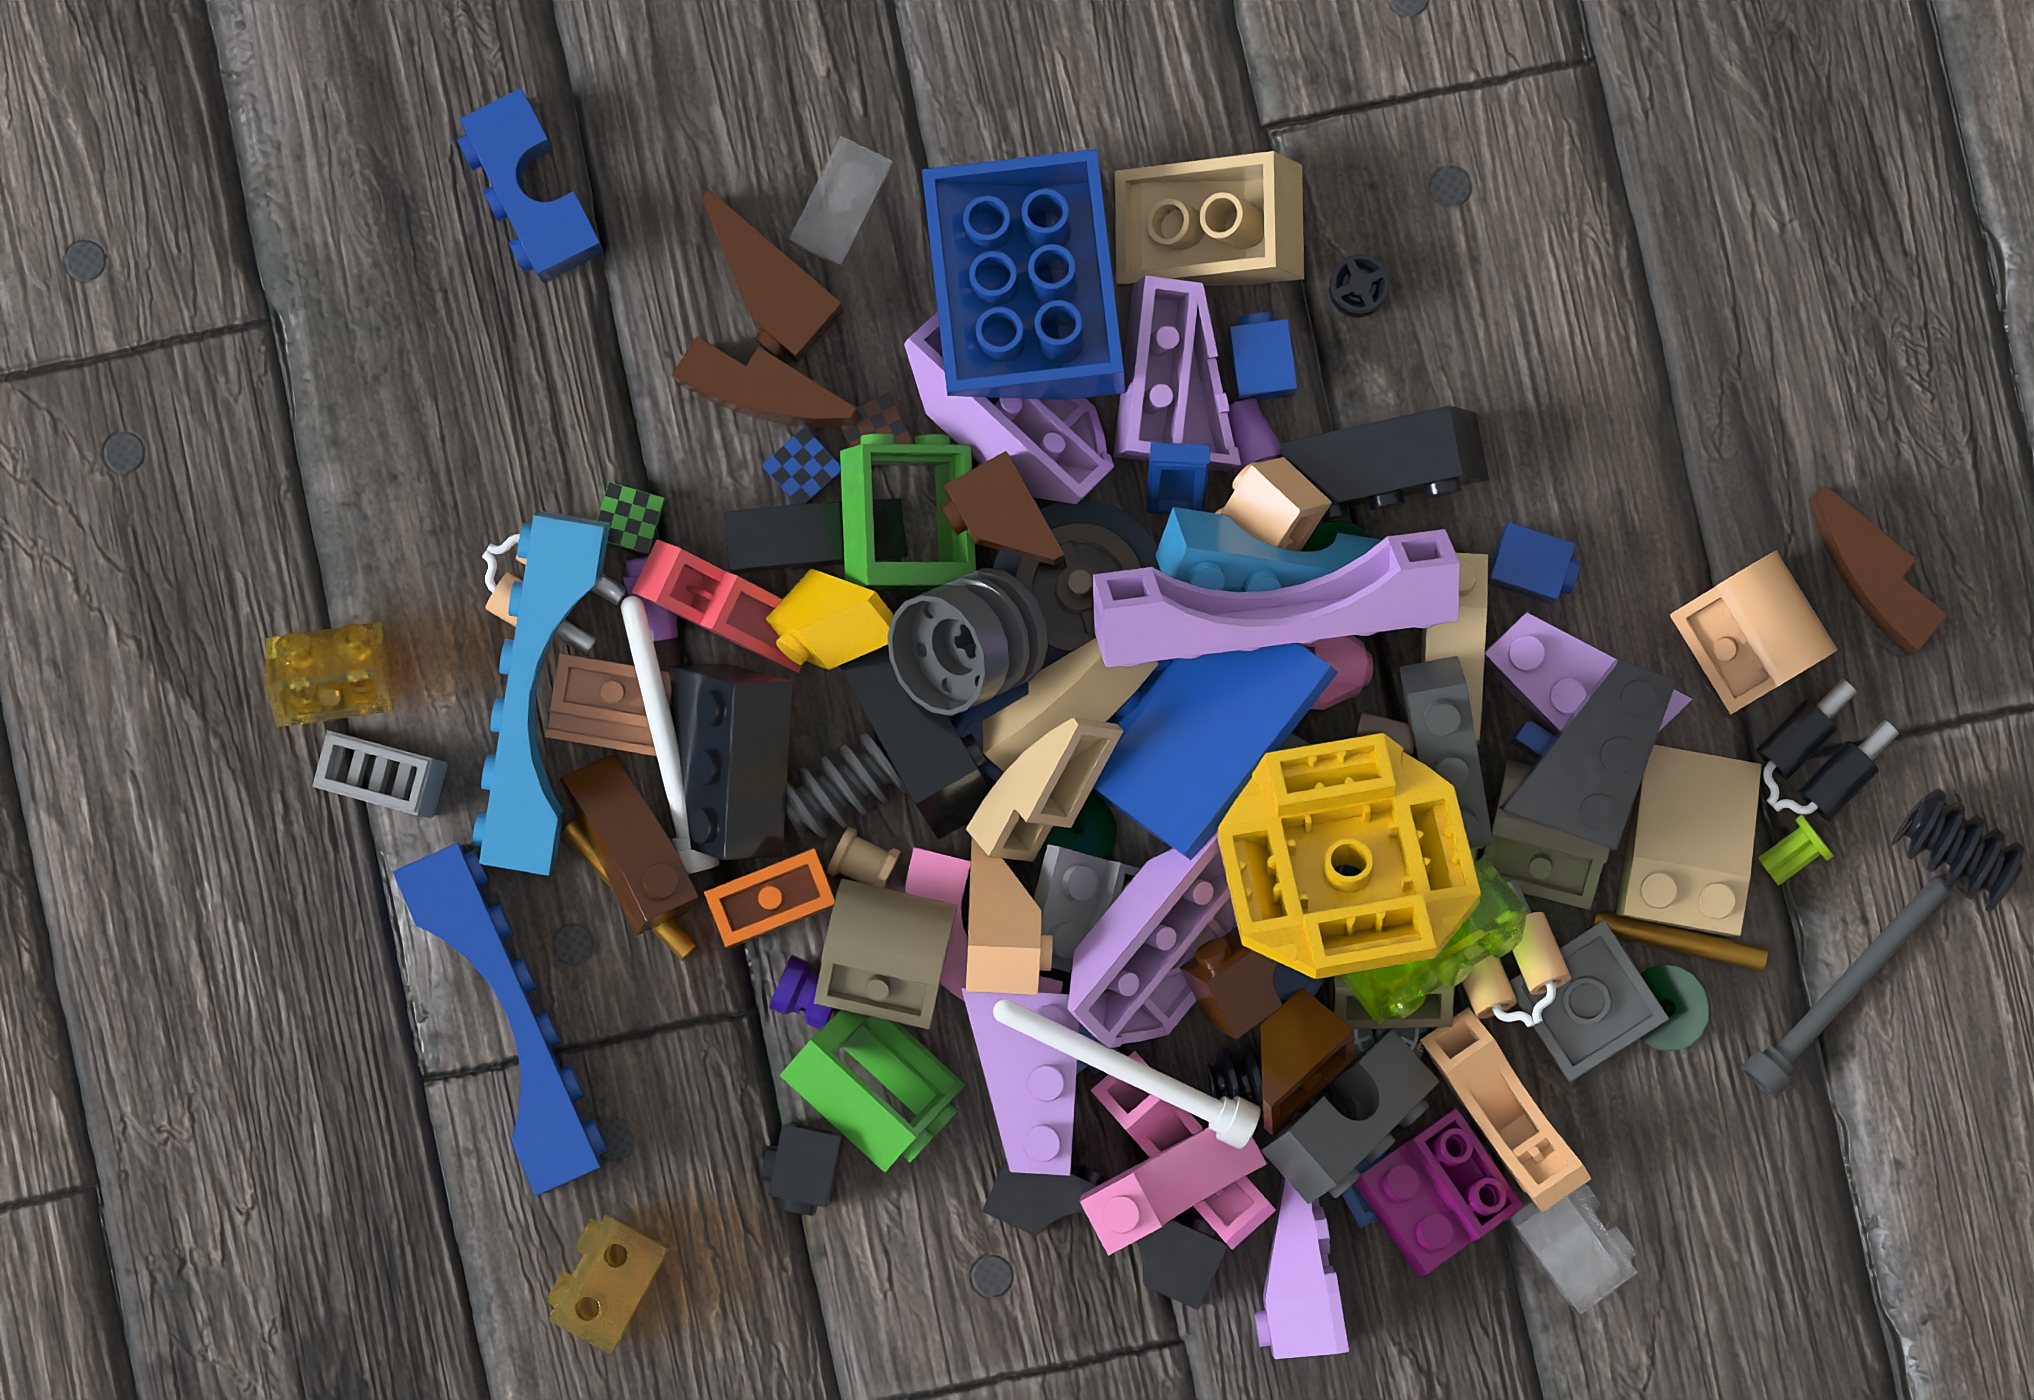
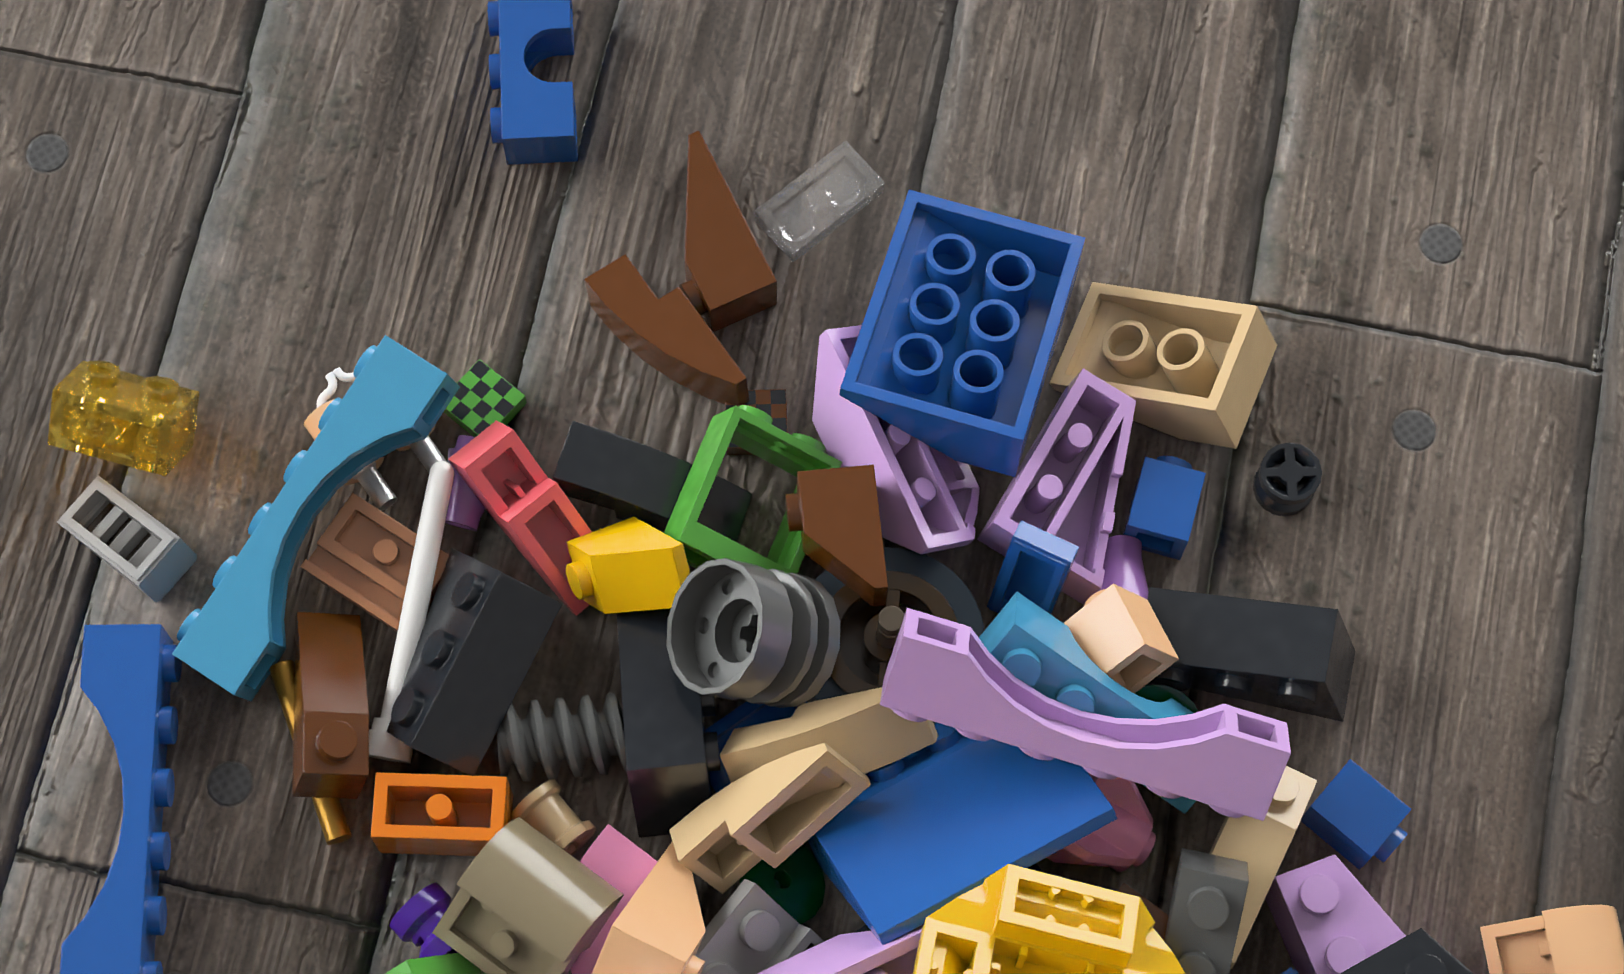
camera: 20 degrees right, 15 degrees down
(802, 467) = (671, 422): tile -> none

